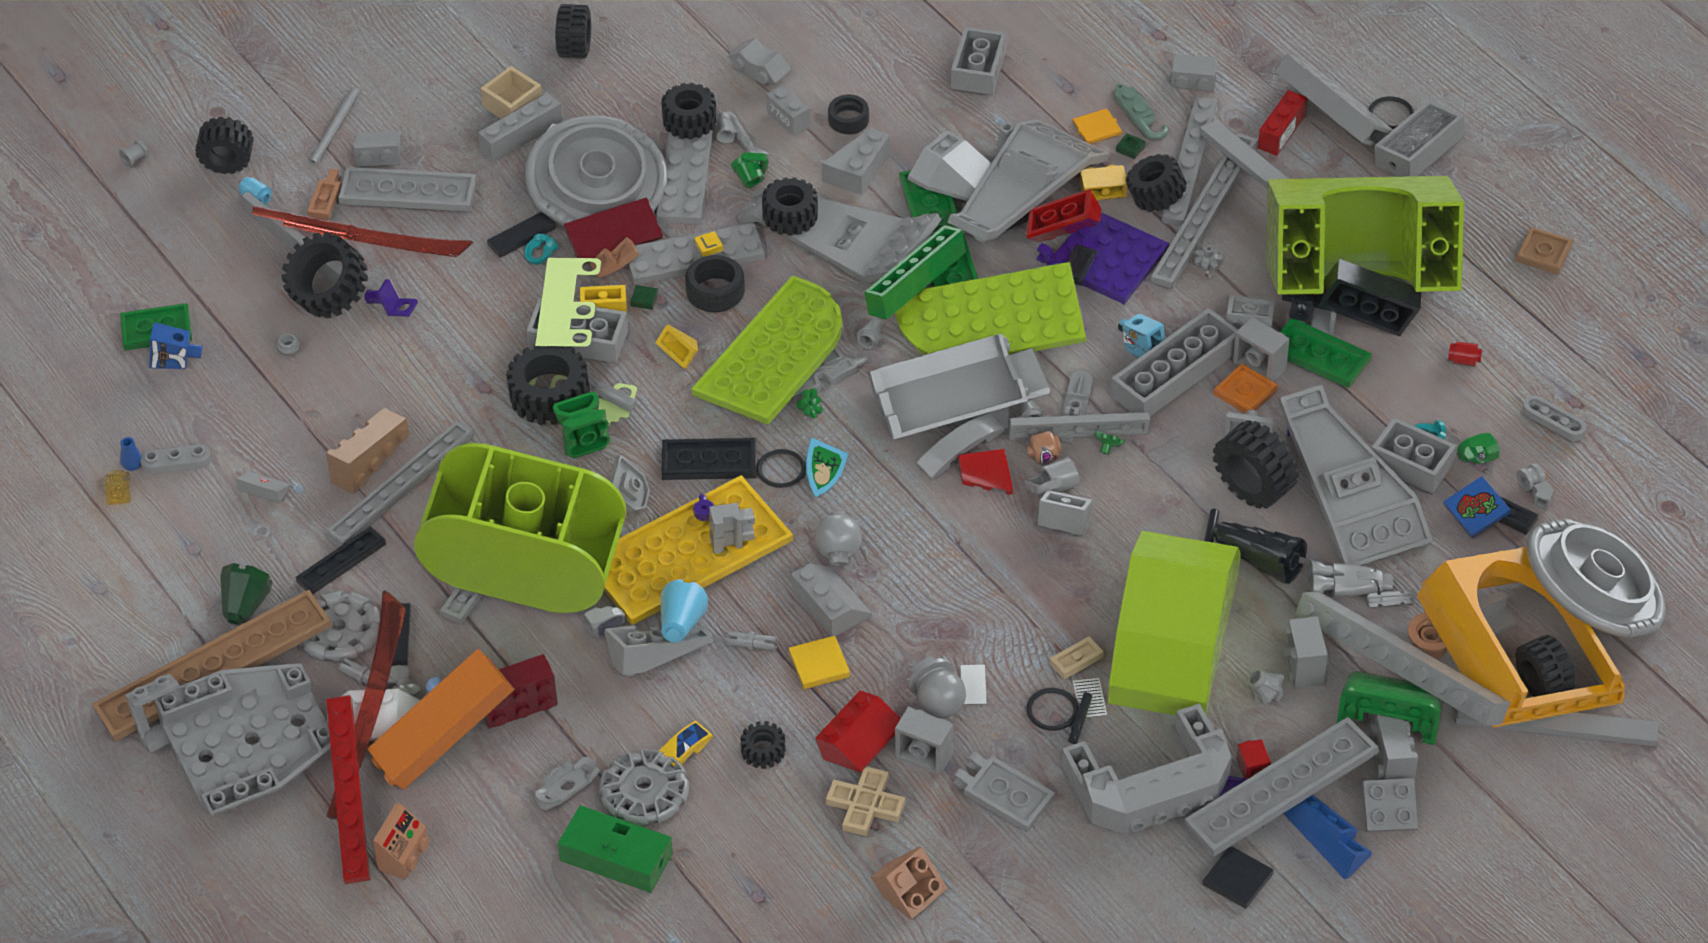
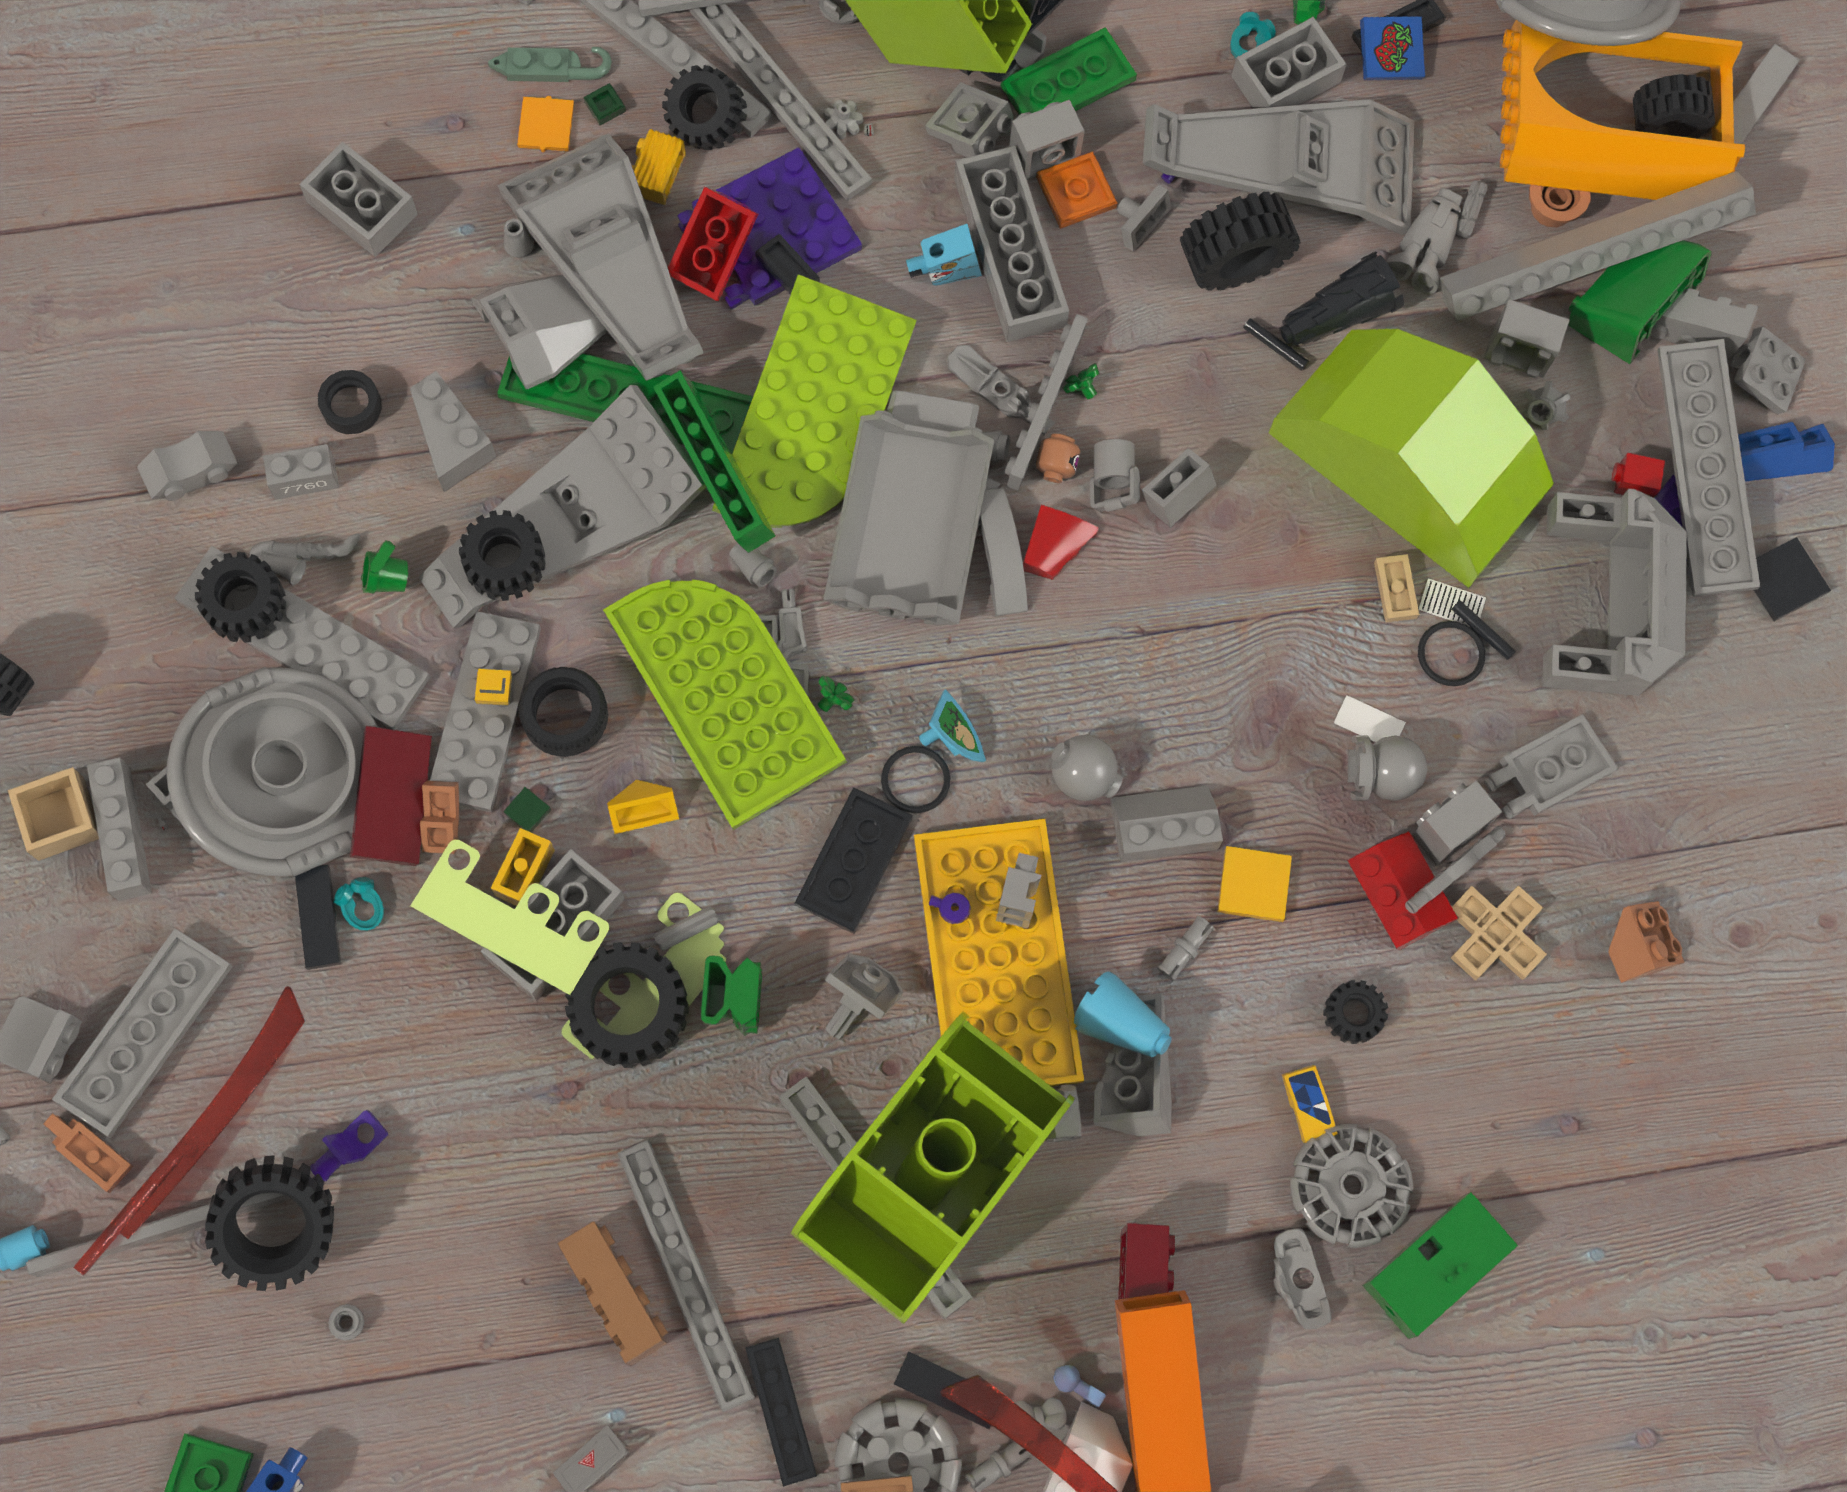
camera: 70 degrees left, 25 degrees up
(901, 756) = (1456, 869): none -> light grey piece

